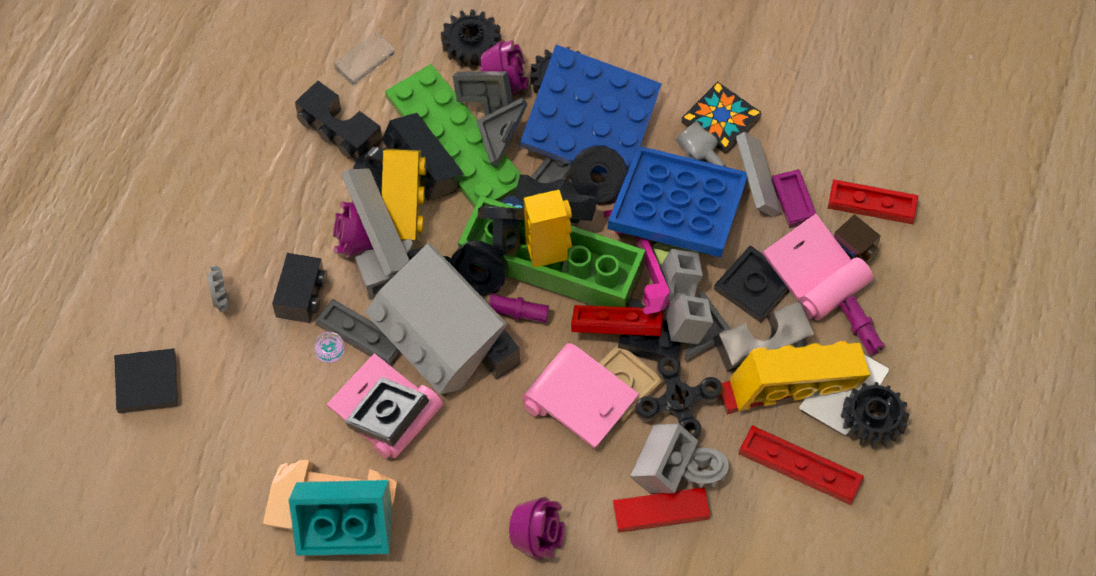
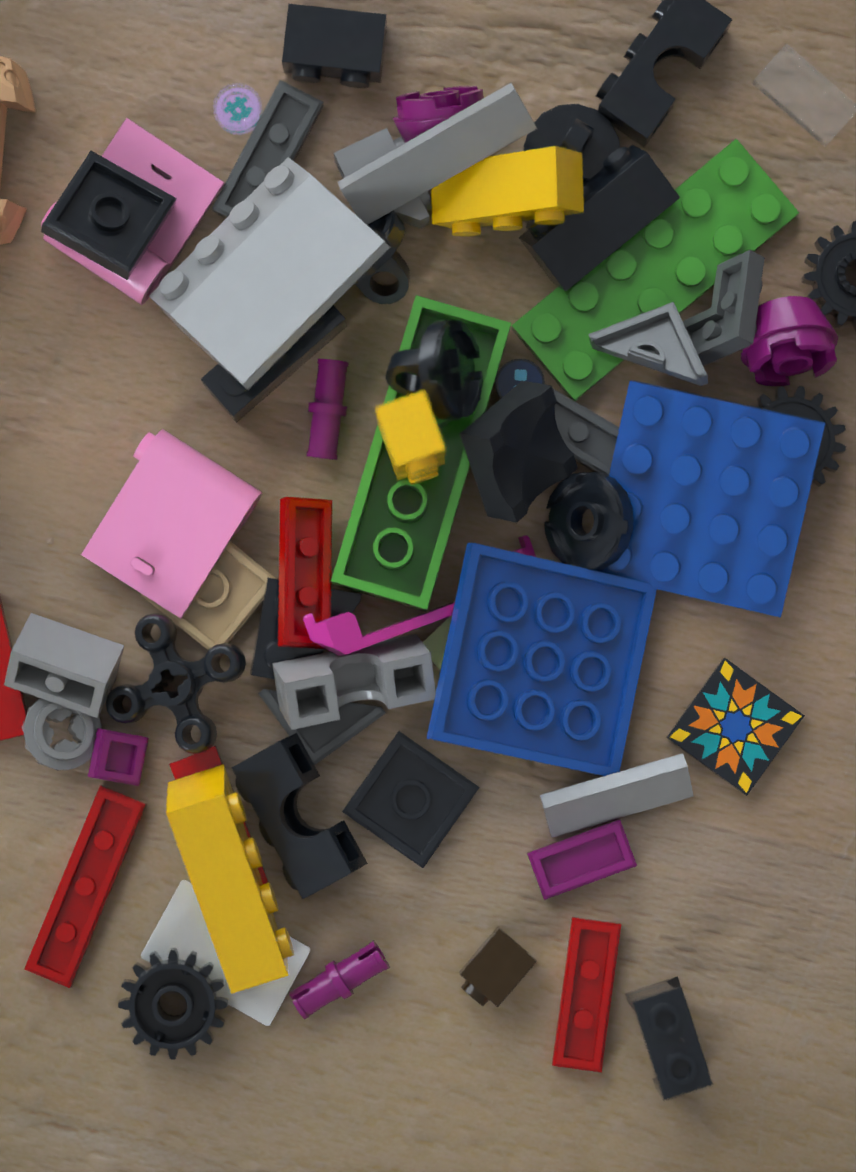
camera: 85 degrees right, 25 degrees up
(484, 255) = (381, 332): black tile -> none
(699, 144) = (668, 691): light grey piece -> none
(722, 438) = (118, 757): none -> magenta tile
(818, 270) = (433, 905): bright pink door -> none
(900, 140) = (670, 1038): none -> black window

